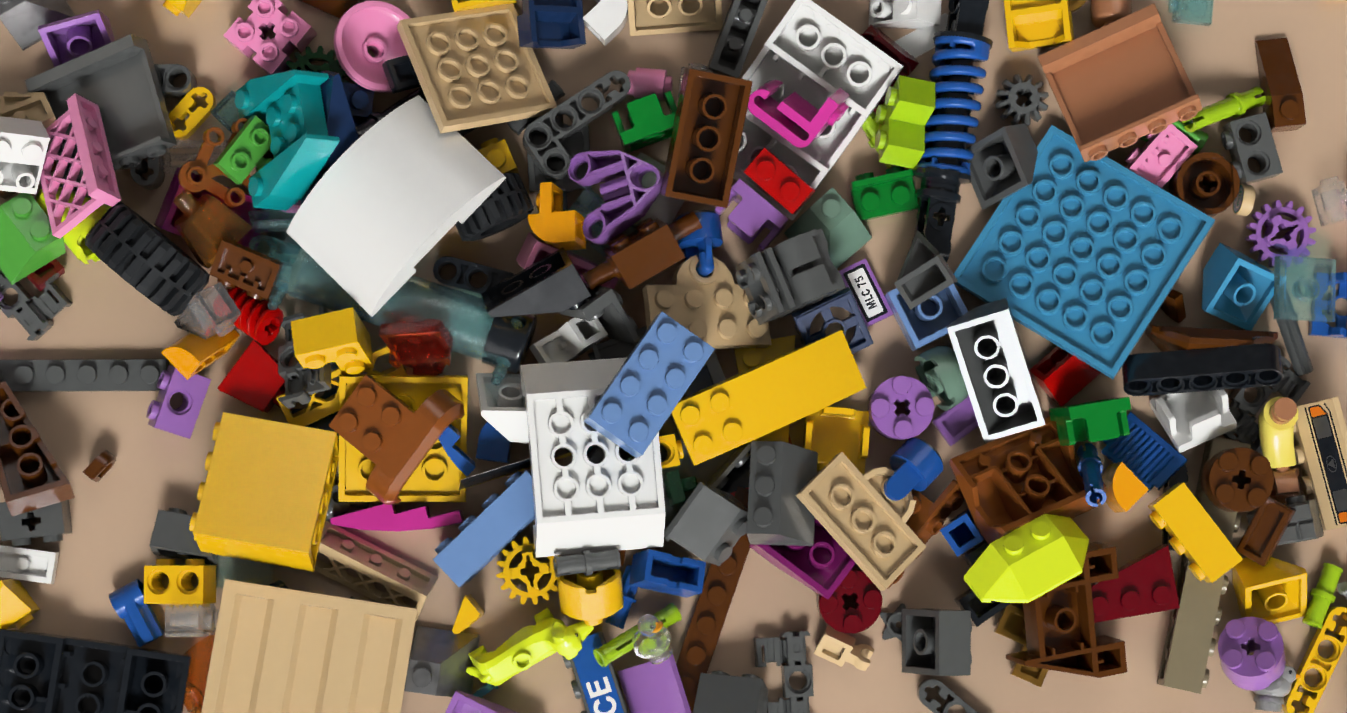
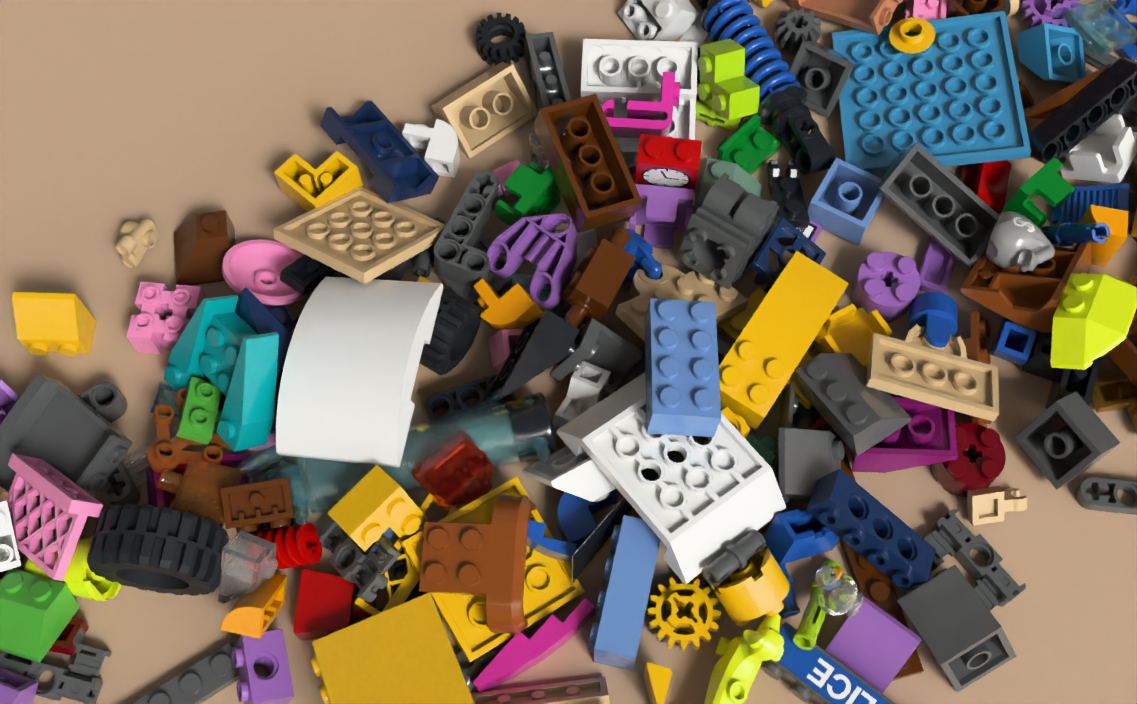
camera: 30 degrees left, 20 degrees down
(196, 118) = (137, 425): yellow beam -> none
(740, 646) = (871, 529): none -> dark blue brick
(881, 266) = (788, 194): none -> black hinge
(890, 620) = (1018, 466): dark grey plate -> none
(923, 273) = (829, 163): dark grey slope -> none
(942, 376) = (900, 235): sand green cylinder -> none
(1028, 455) = (1018, 243): none -> light grey piece
(1108, 198) = (912, 44): none -> yellow piece

